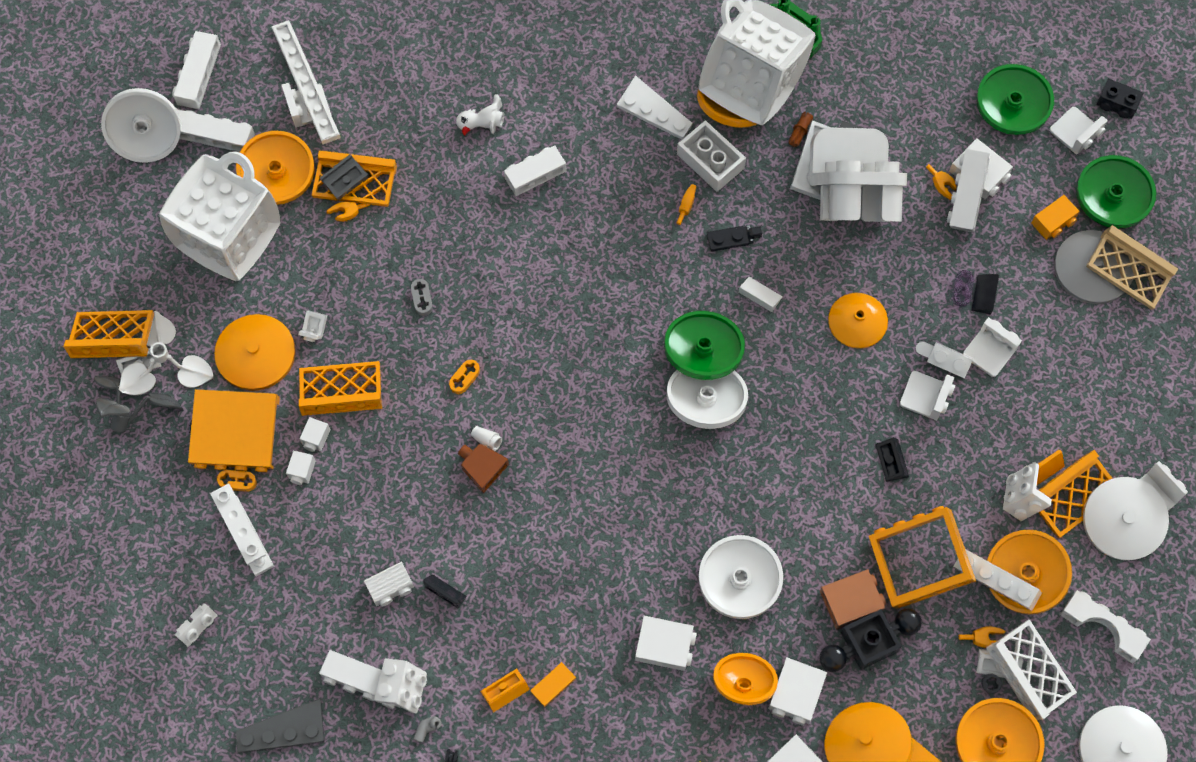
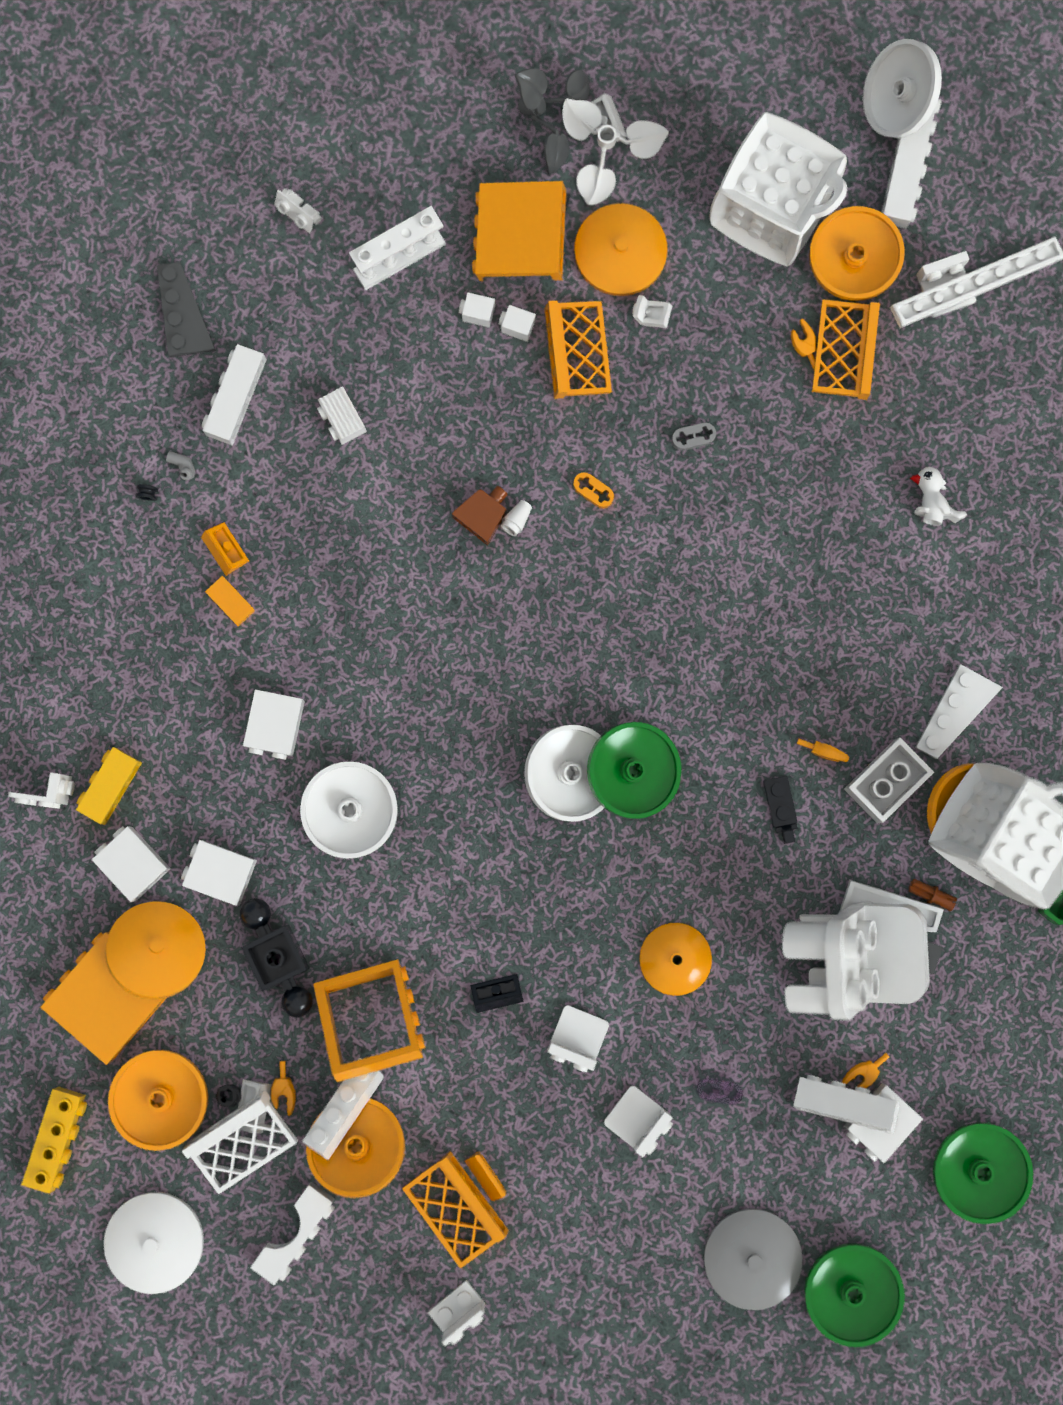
camera: 85 degrees right, 15 degrees up
(107, 345) = (618, 83): light orange fence -> none
(196, 70) = (988, 150): white brick -> none
(237, 475) = (458, 240): light orange beam -> none
(344, 177) = (843, 334): dark grey plate -> none
(401, 684) = (222, 433): white bracket -> none
(444, 590) = (335, 477): black slope -> none
(535, 170) = (864, 564): white brick -> none
(745, 671) = (244, 814): light orange dish -> none
(760, 294) = (707, 840): white slope -> none
(852, 598) = (325, 939): nougat brick -> none
(945, 358) = (623, 1063): white brick -> none
(985, 293) = (713, 1118): black slope -> none
(1021, 495) = (450, 1144): white bracket -> none
(1055, 217) = (817, 1213): light orange brick -> none
(1077, 130) = (944, 1252): white bracket -> none
(1119, 99) = (989, 1312): black brick -> none
(1125, 518) = (423, 1269): white dish -> none
(1135, 252) = (768, 1311): tan fence -> none

